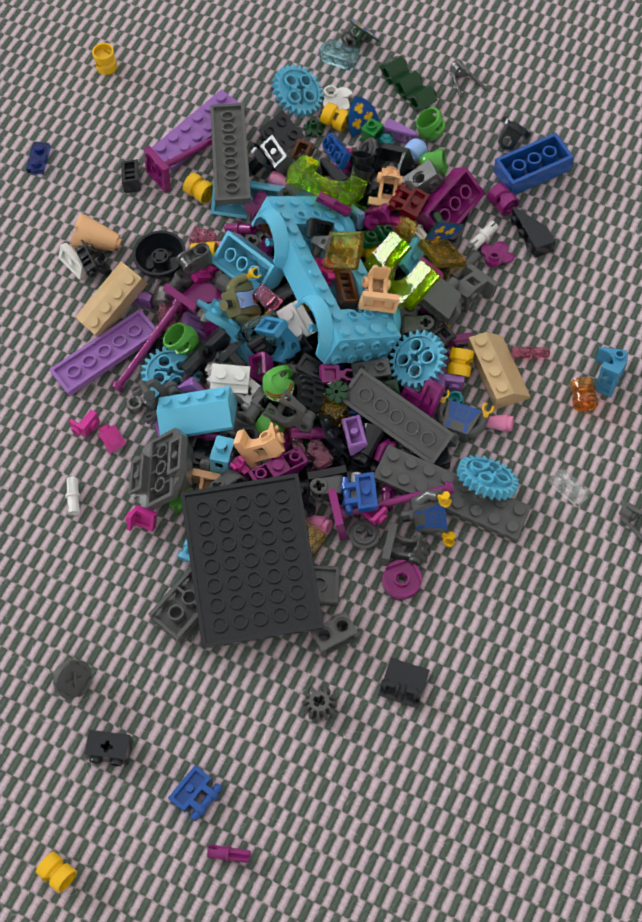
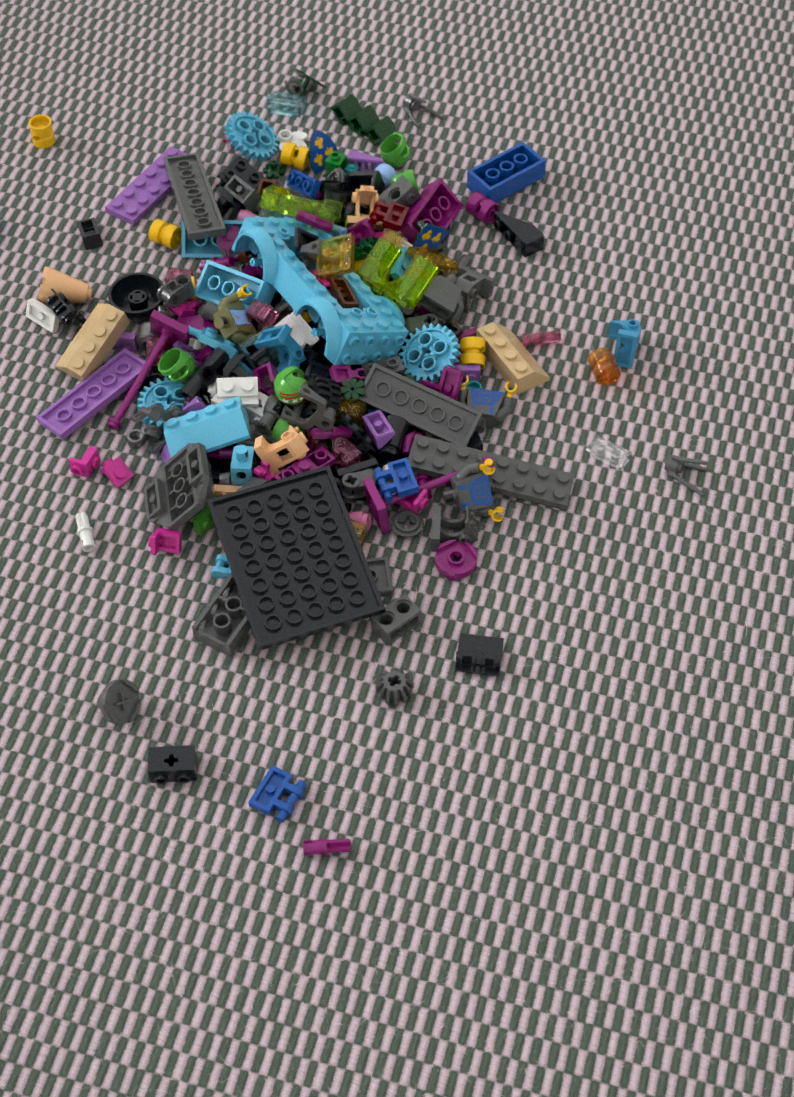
camera: 15 degrees left, 10 degrees down
(56, 872) = (139, 896): yellow wheel -> none
(159, 170) = (120, 220): magenta tile -> none
(375, 294) = (375, 283): light nougat tile -> none
(483, 235) = (469, 242): white pin -> none
(487, 477) = (524, 450): medium azure gear -> none
(496, 254) = (486, 257): magenta plate -> none
(501, 422) = (526, 403): bright pink cone -> none
(513, 130) = (481, 146): black tile -> none

